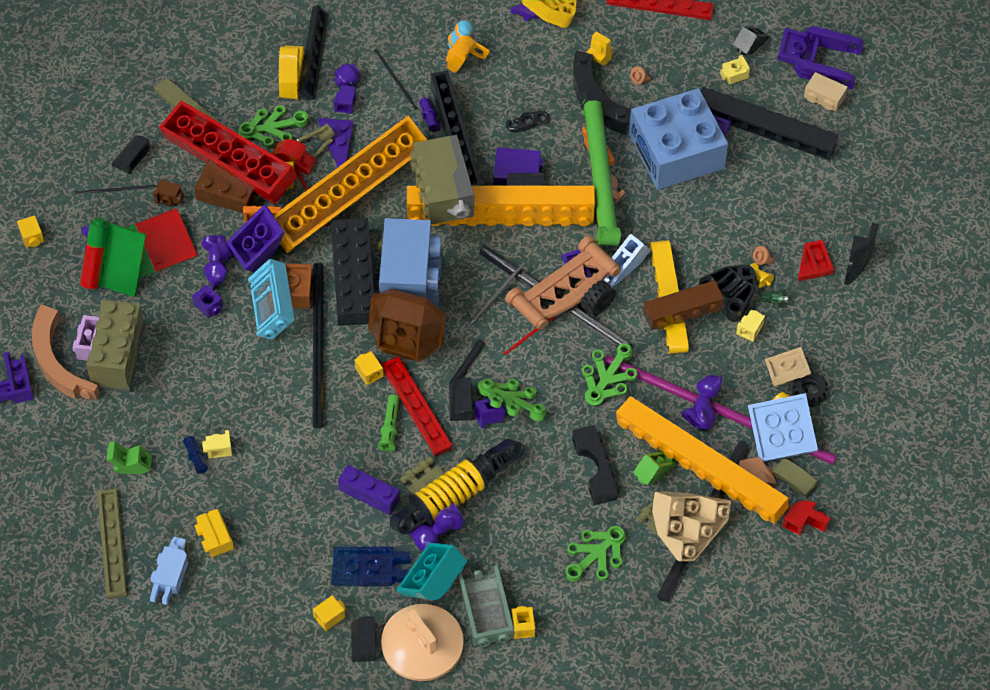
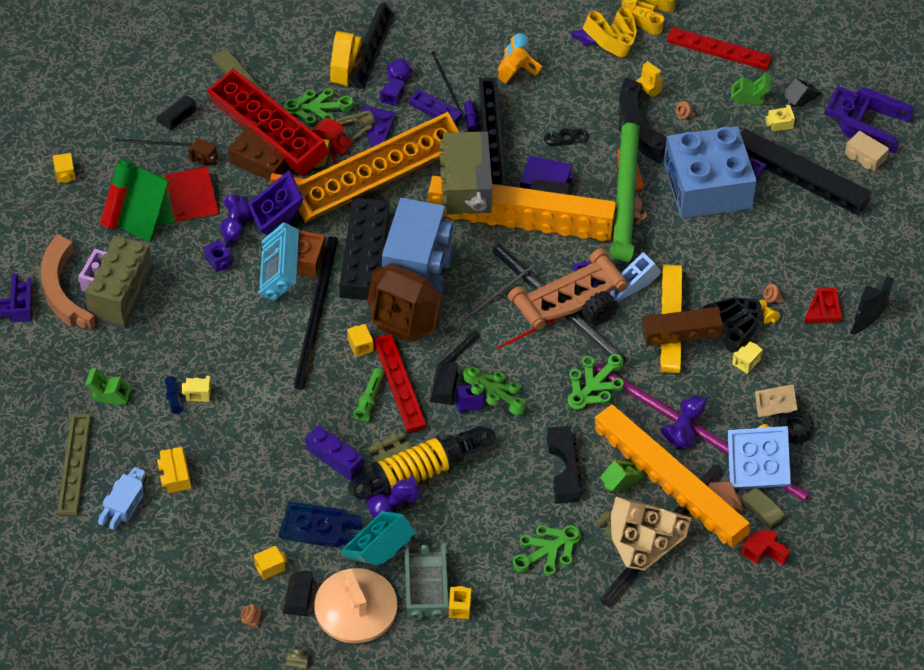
camera: 10 degrees right, 5 degrees down
(322, 669) = (251, 615): none -> nougat plate
(389, 109) = (433, 106): none -> dark purple plate
(701, 47) = (751, 92): none -> bright green brick
(774, 297) = (778, 335): clear green piece -> none

